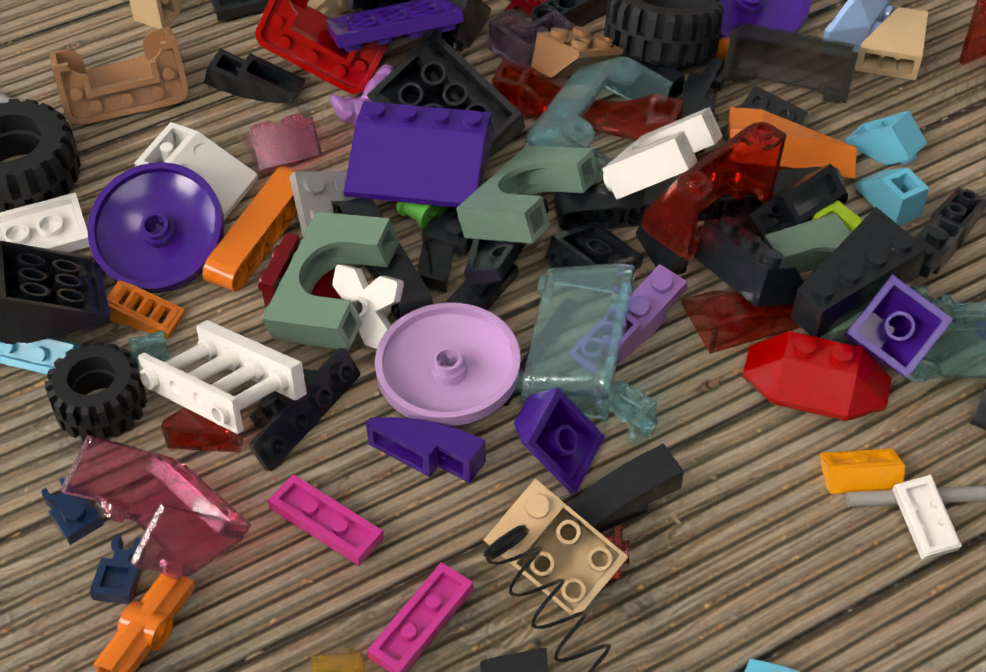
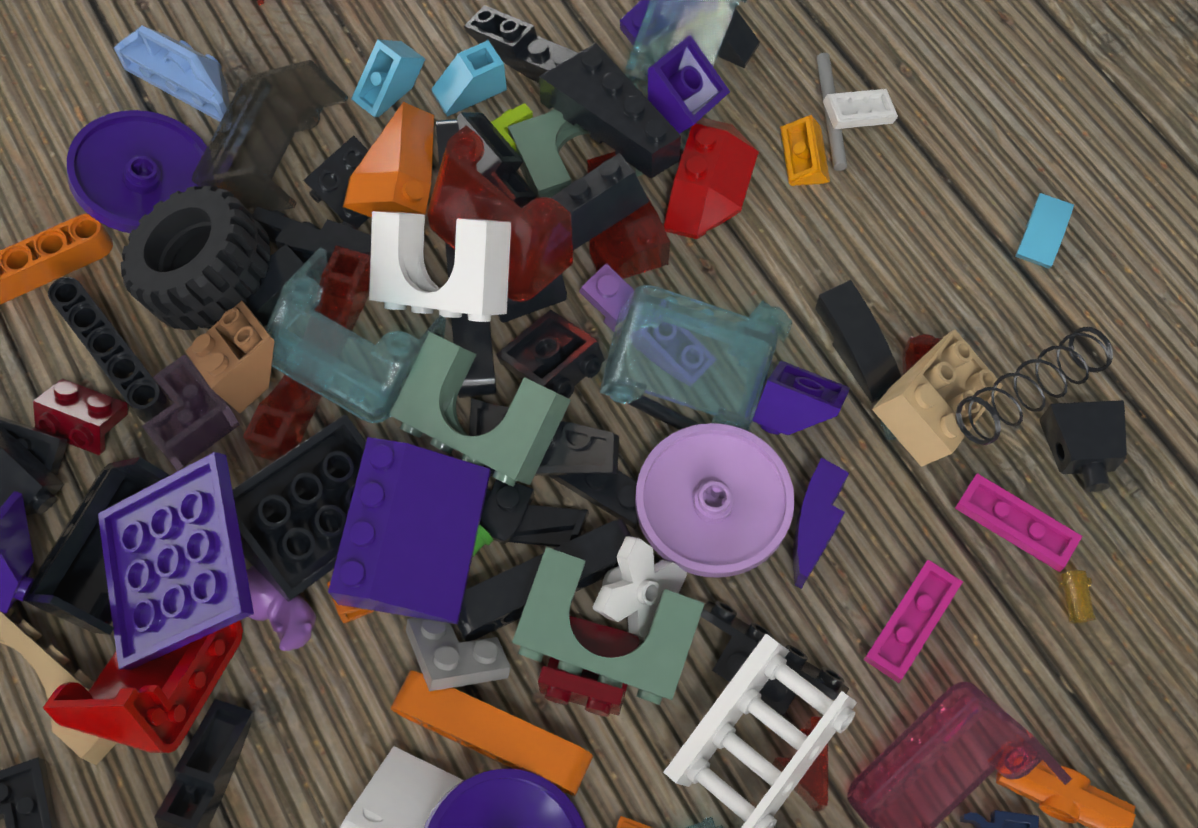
camera: 90 degrees left, 15 degrees up
(283, 143) = (342, 716): clear pink slope -> none
(895, 45) = (237, 42): tan slope -> none

